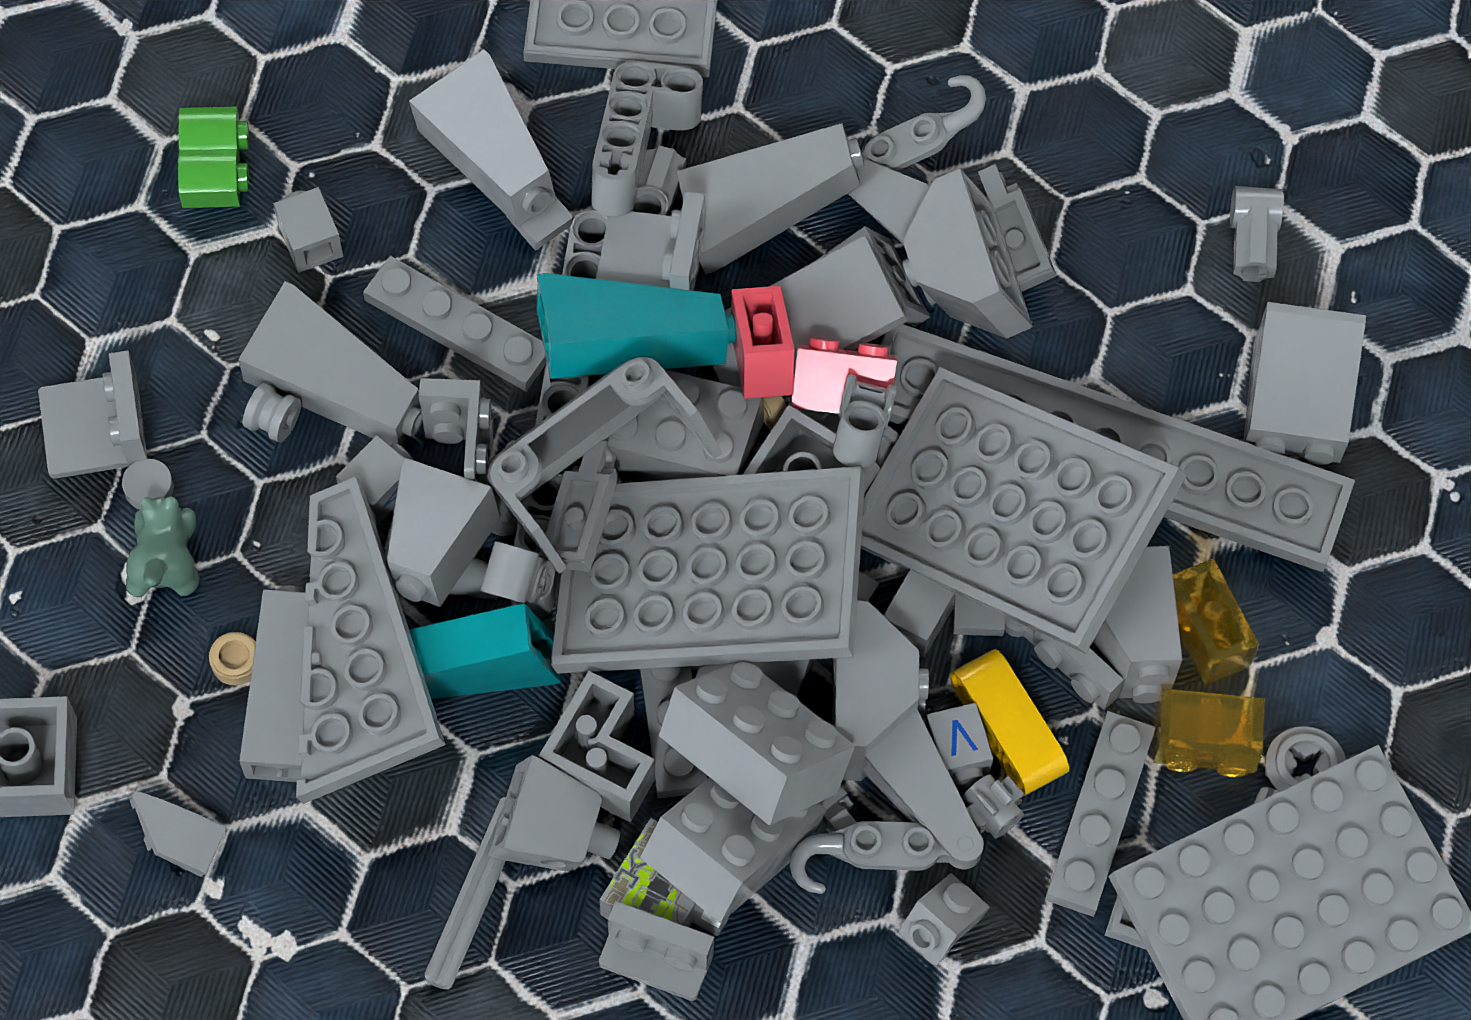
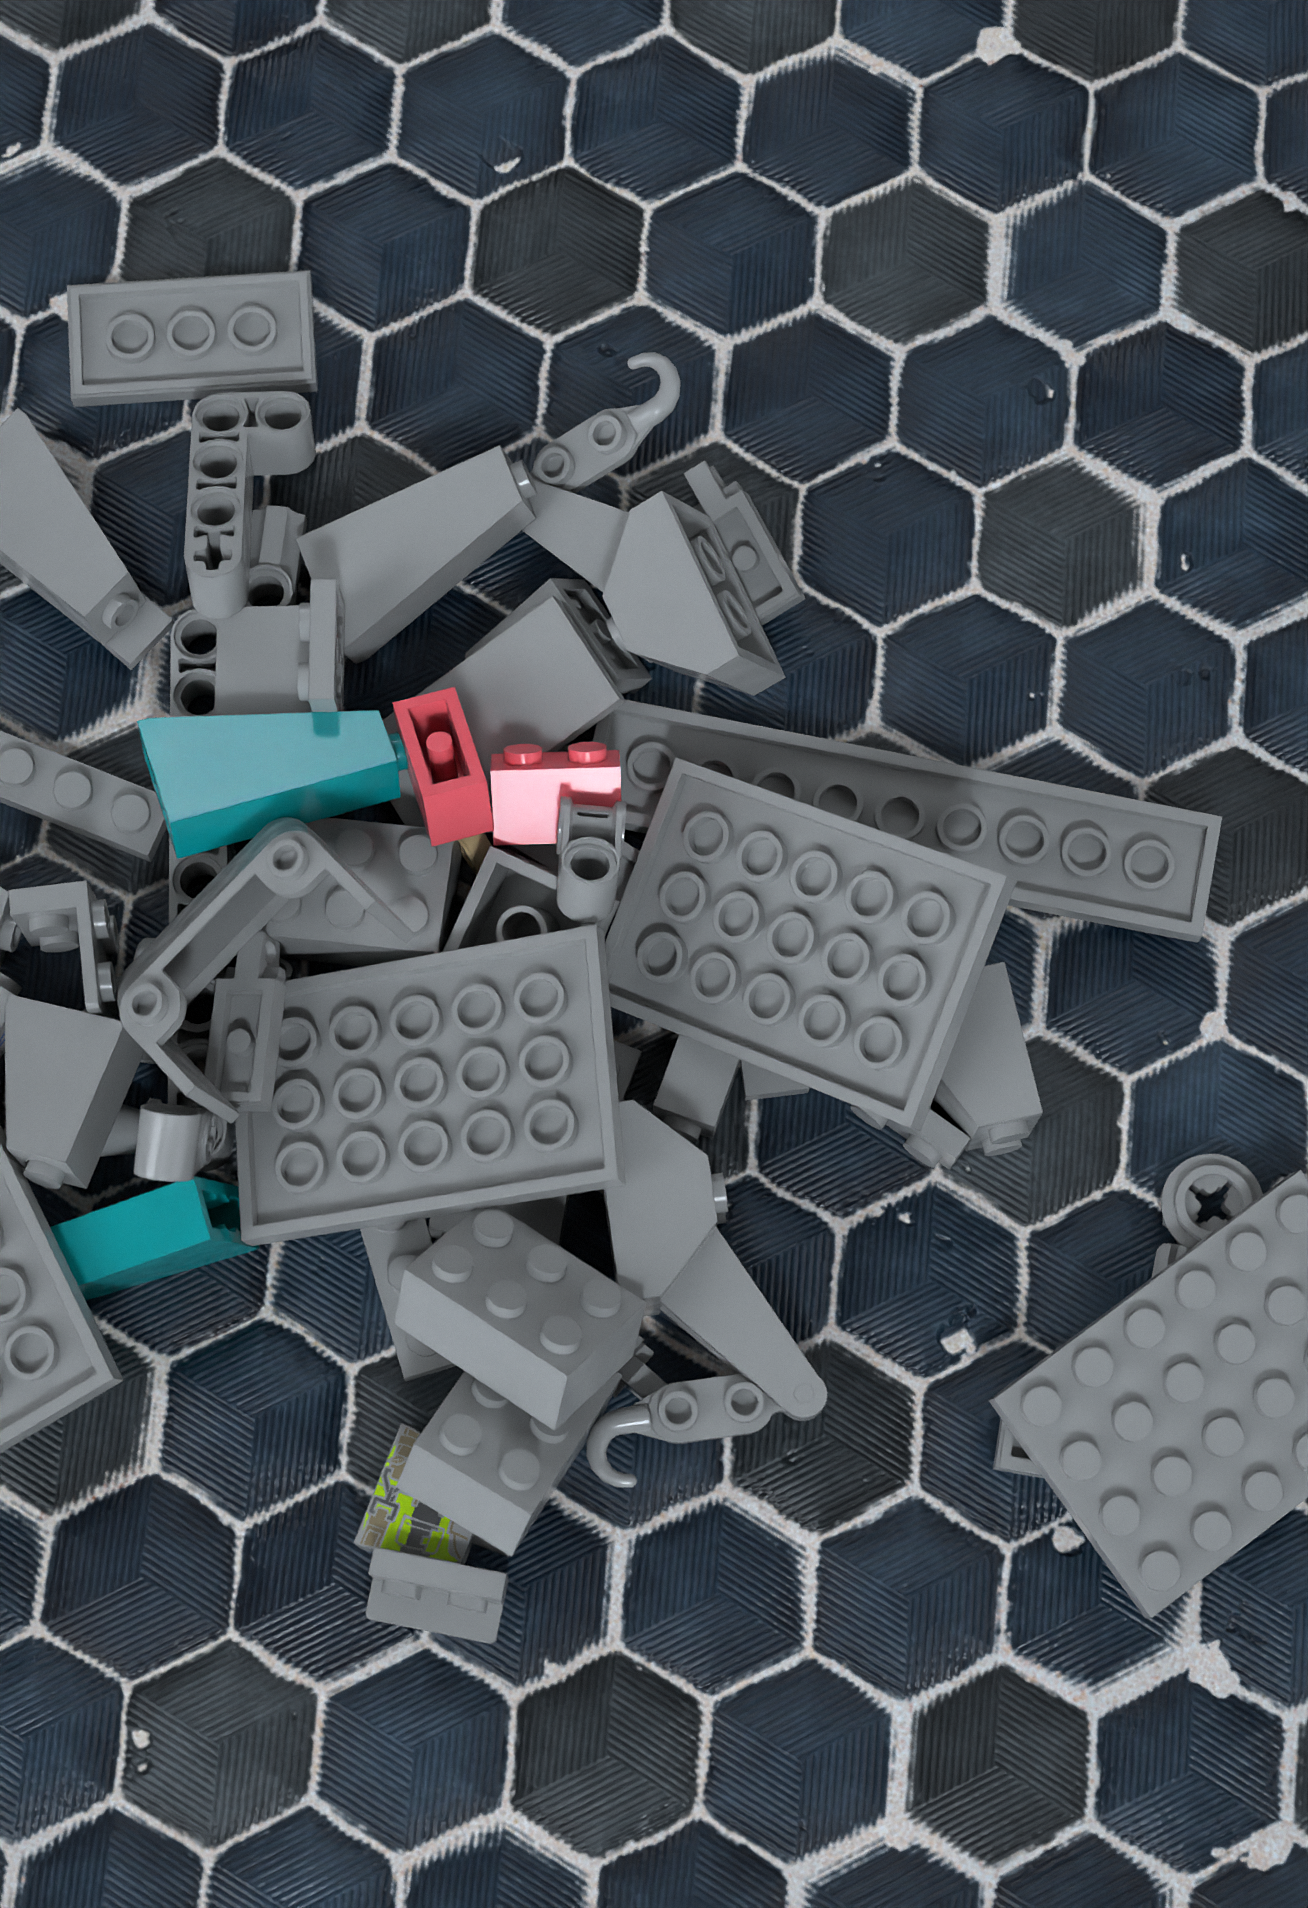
camera: 10 degrees left, 10 degrees up
(466, 911) = (195, 1549): light grey axle -> none
(550, 820) = (274, 1444): light grey torso -> none
(590, 747) = (303, 1344): light grey brick -> none
(942, 918) = (789, 1483): light grey bracket -> none
(961, 743) = (776, 1254): light grey brick -> none
(994, 805) = (830, 1328): light grey gear -> none
(1011, 722) = (834, 1211): yellow beam -> none
(1100, 814) = (965, 1310): light grey plate -> none
(1209, 732) = (1086, 1184): clear yellow brick -> none
(1212, 623) = (1069, 1040): clear yellow brick -> none
(1256, 218) = (1048, 479): light grey piece -> none
(1304, 382) = (1140, 699): light grey slope -> none

